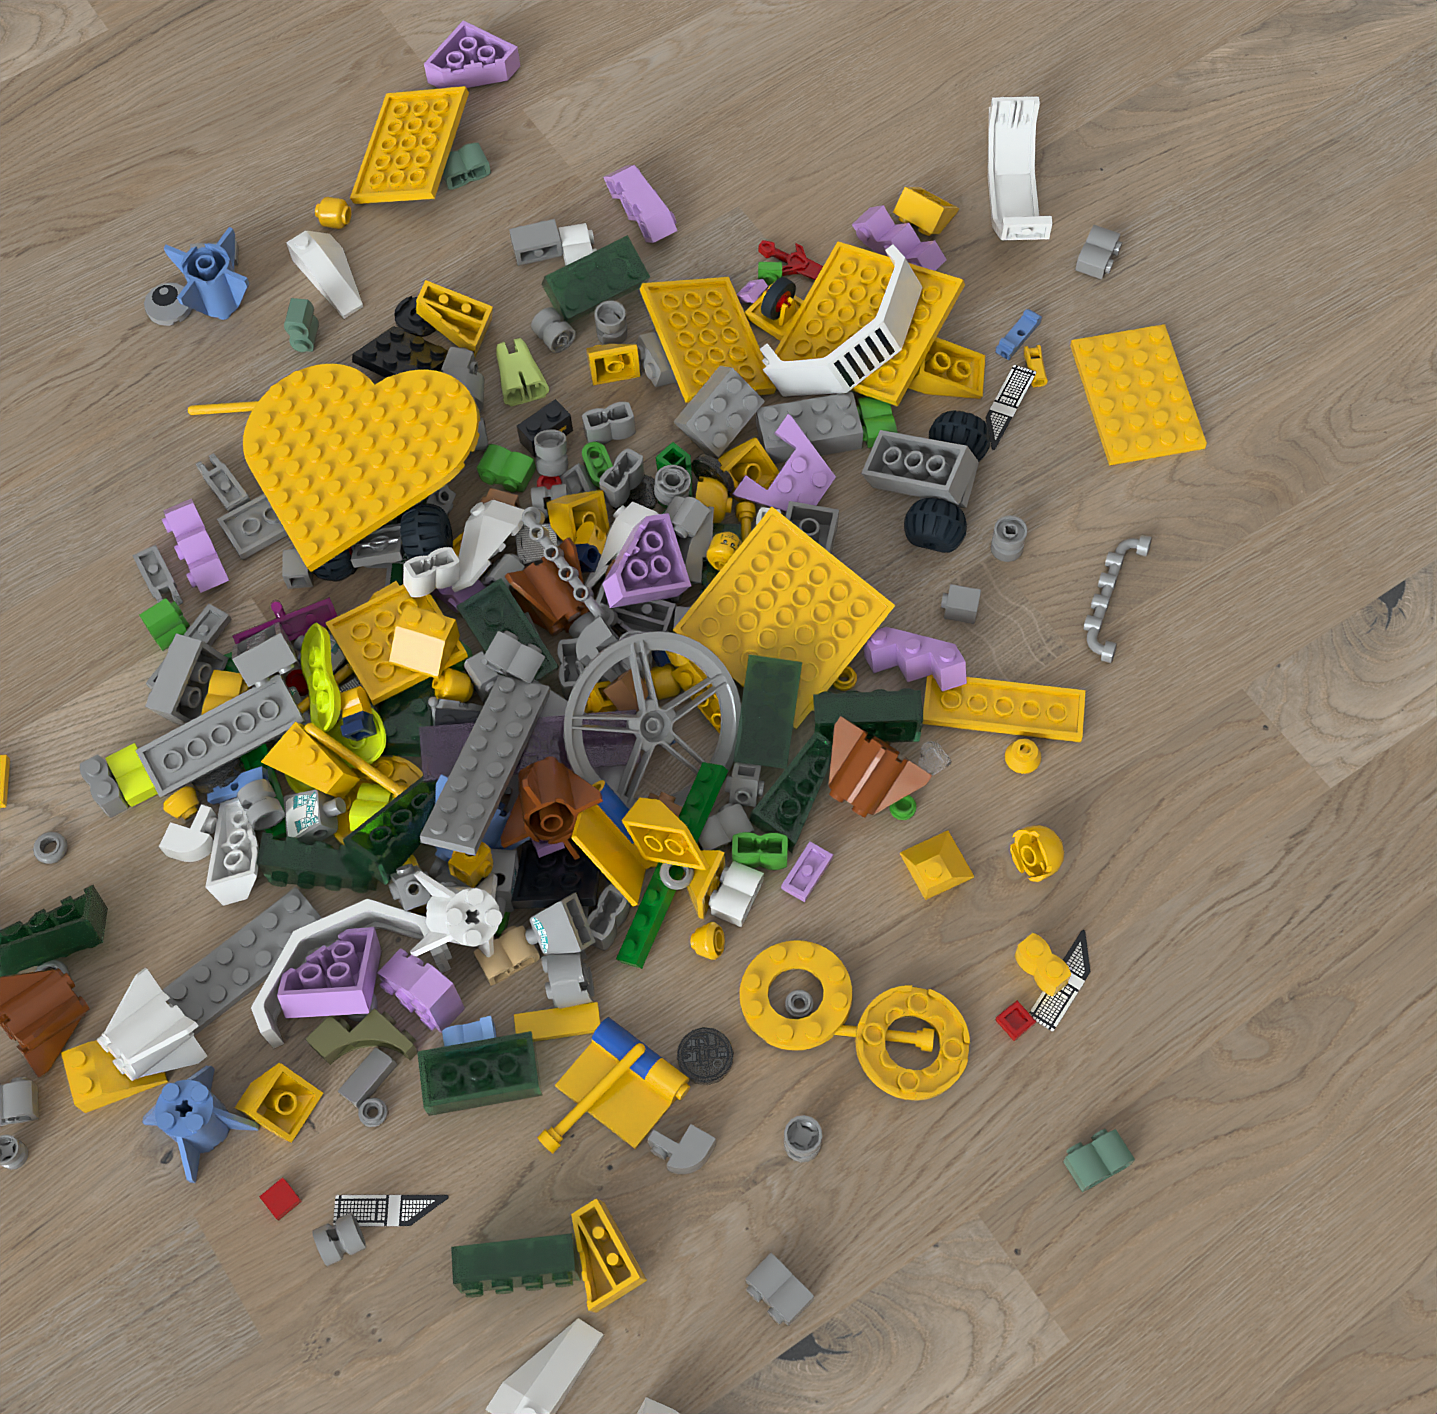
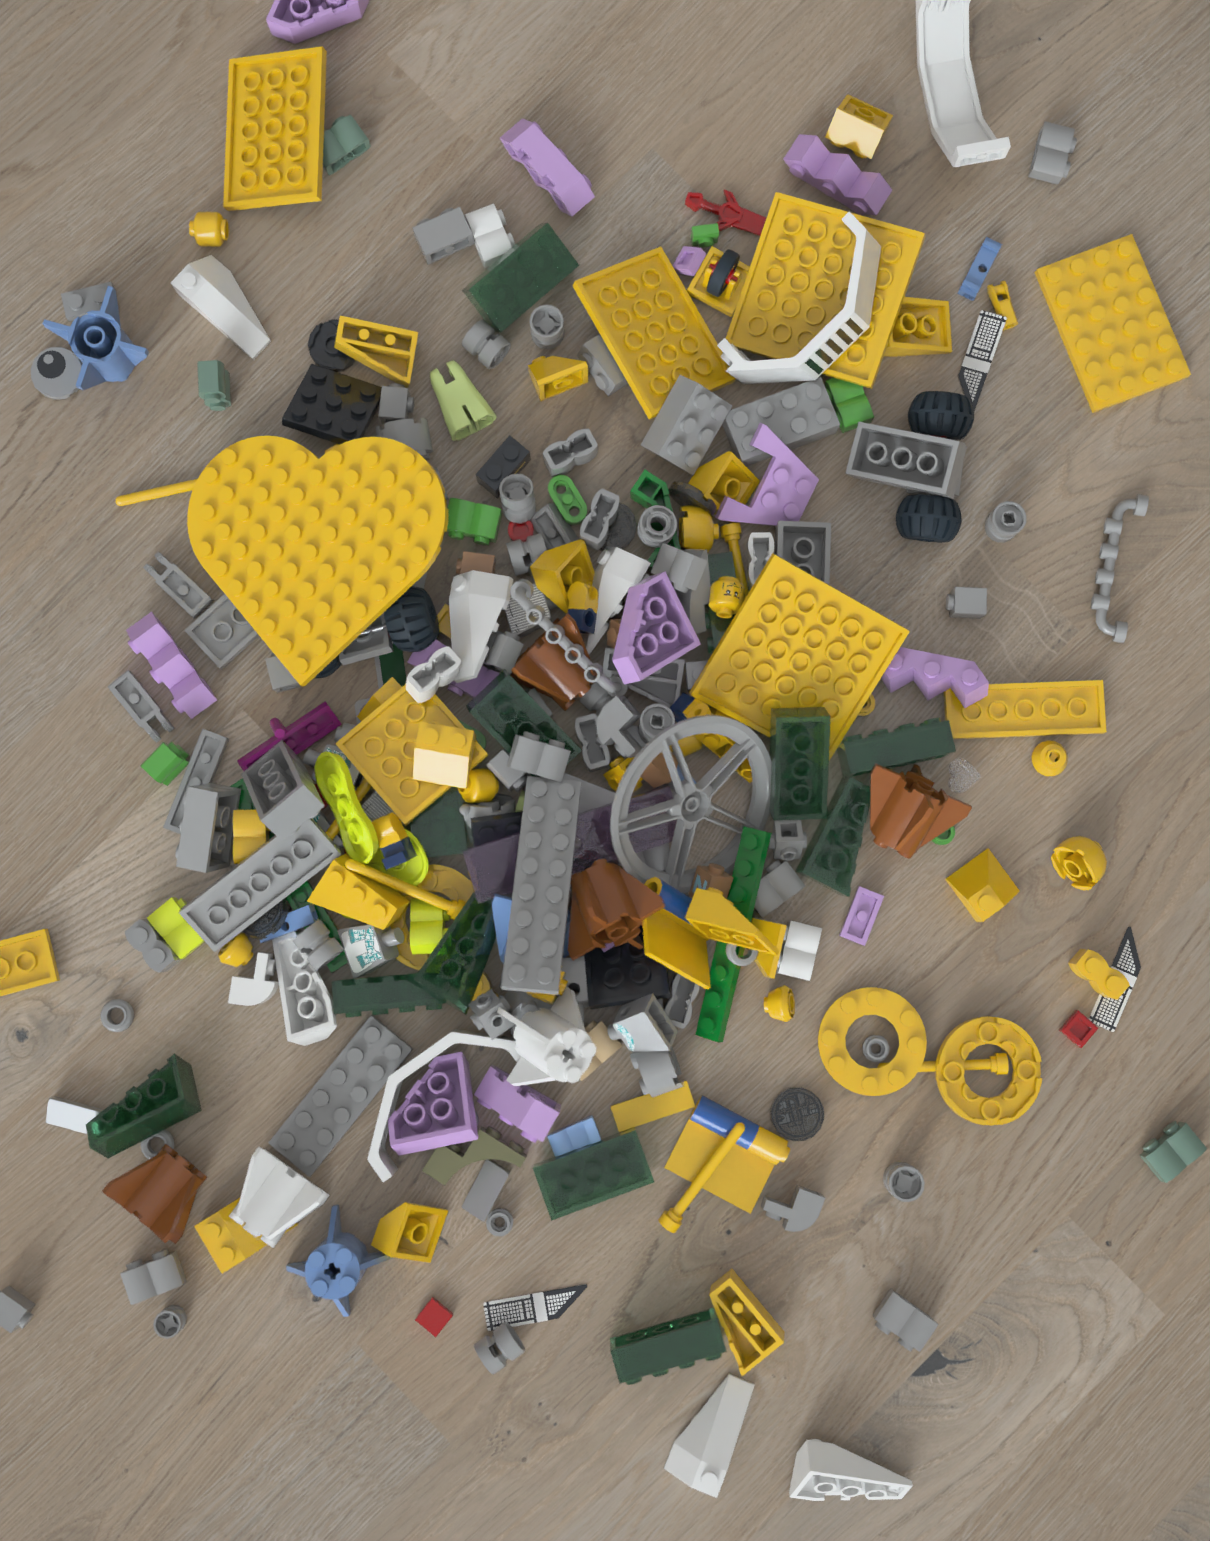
camera: 15 degrees left, 20 degrees up
(764, 851) = (821, 905): bright green brick -> none

